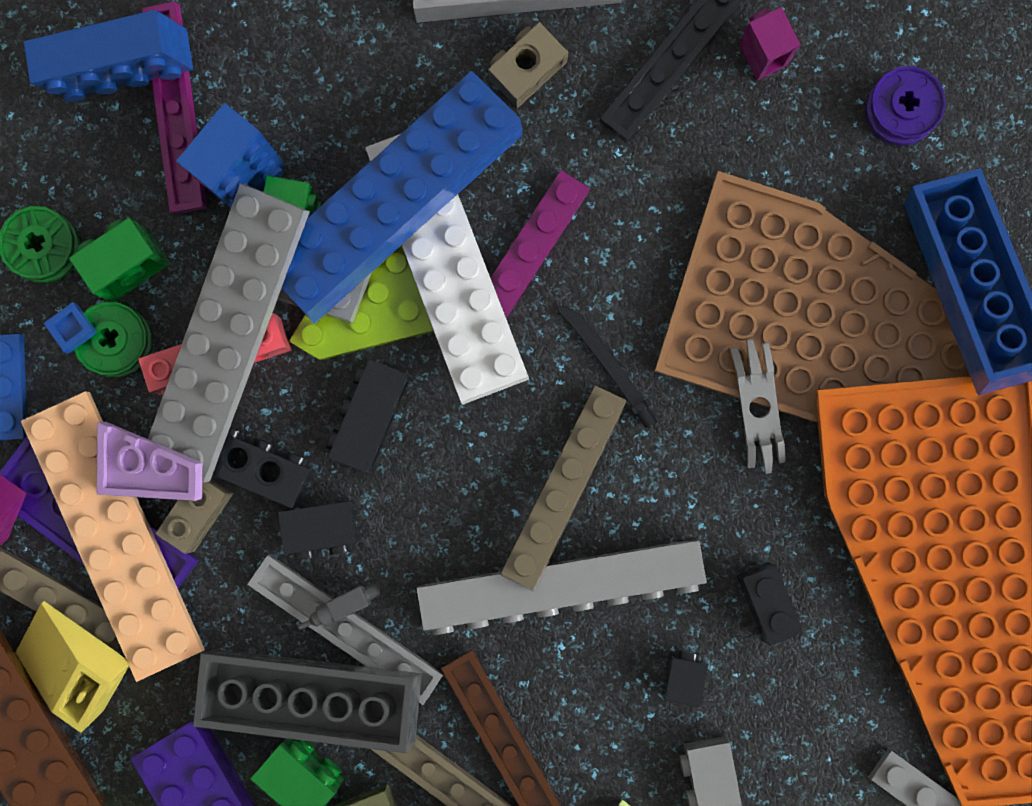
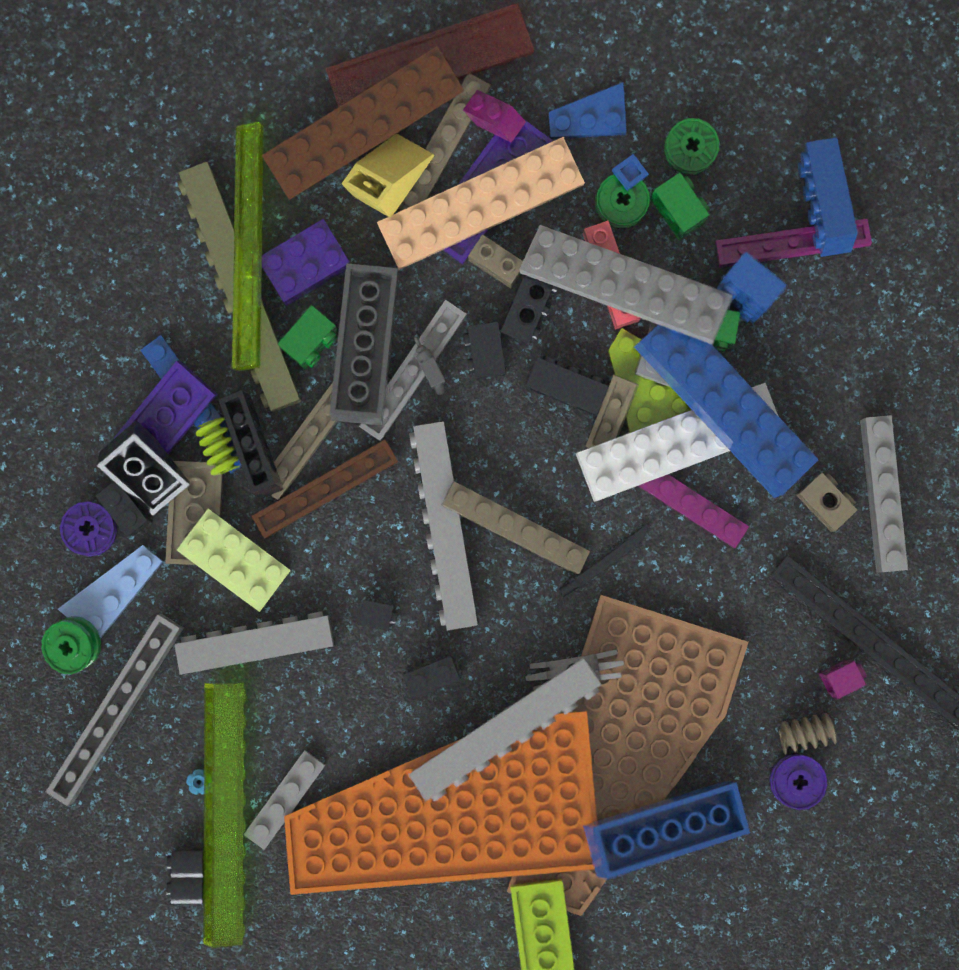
camera: 85 degrees right, 0 degrees up
(143, 468) = (529, 226): lavender wing -> none
(403, 353) = (612, 411): none -> dark tan plate
(838, 93) = (806, 732): none -> dark tan piece
(847, 504) = (505, 729): none -> light grey brick

